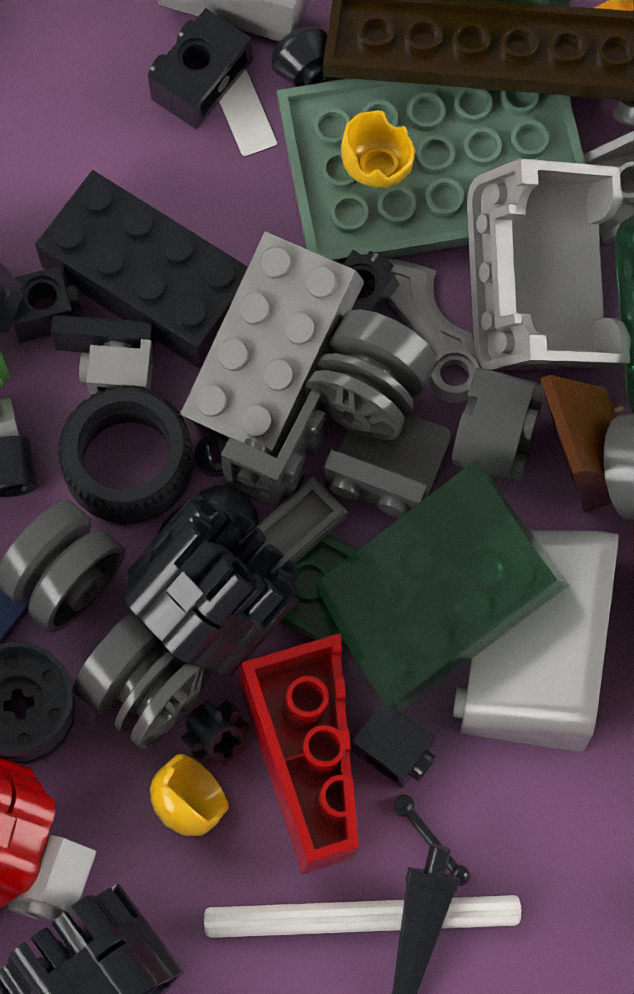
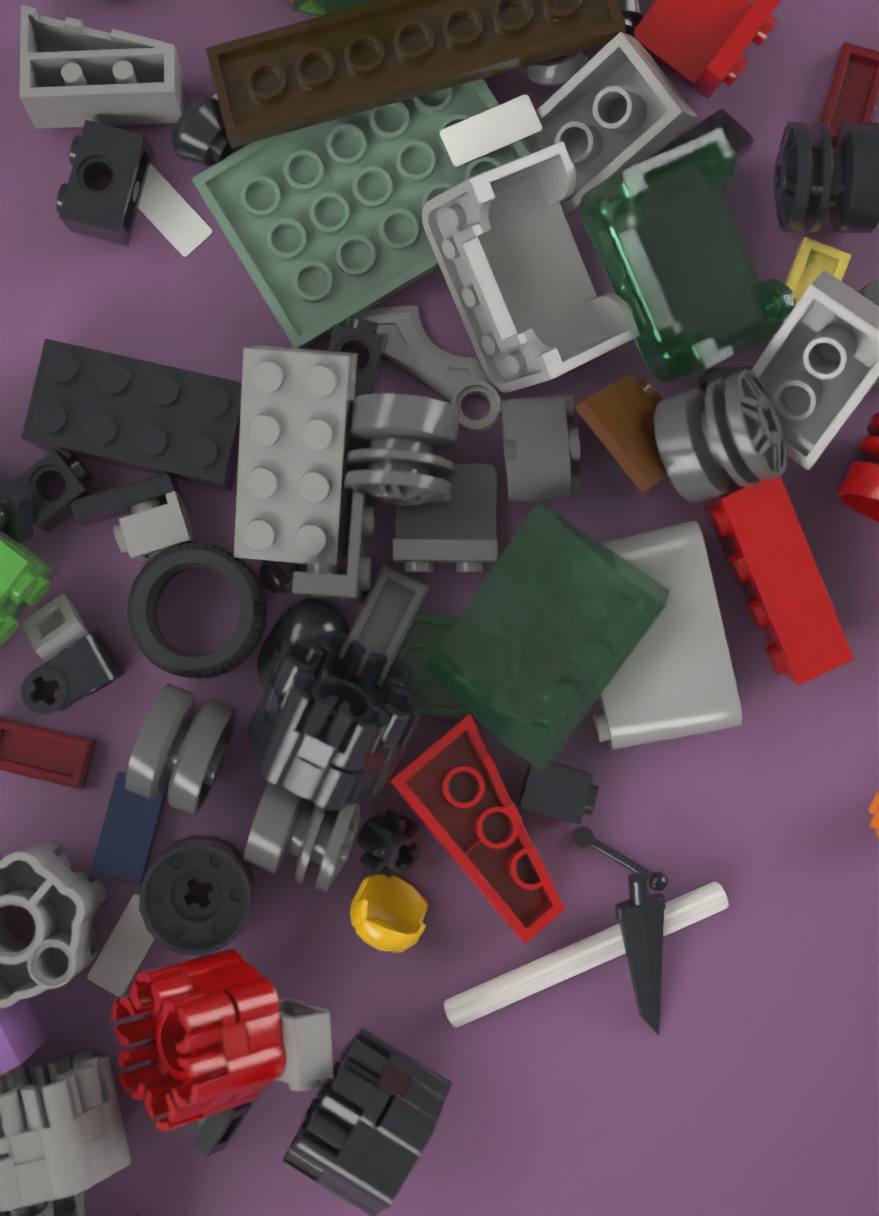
camera: 20 degrees left, 15 degrees up
(376, 150) = (317, 211): yellow hair -> none
(561, 143) = (490, 130): none -> white sticker

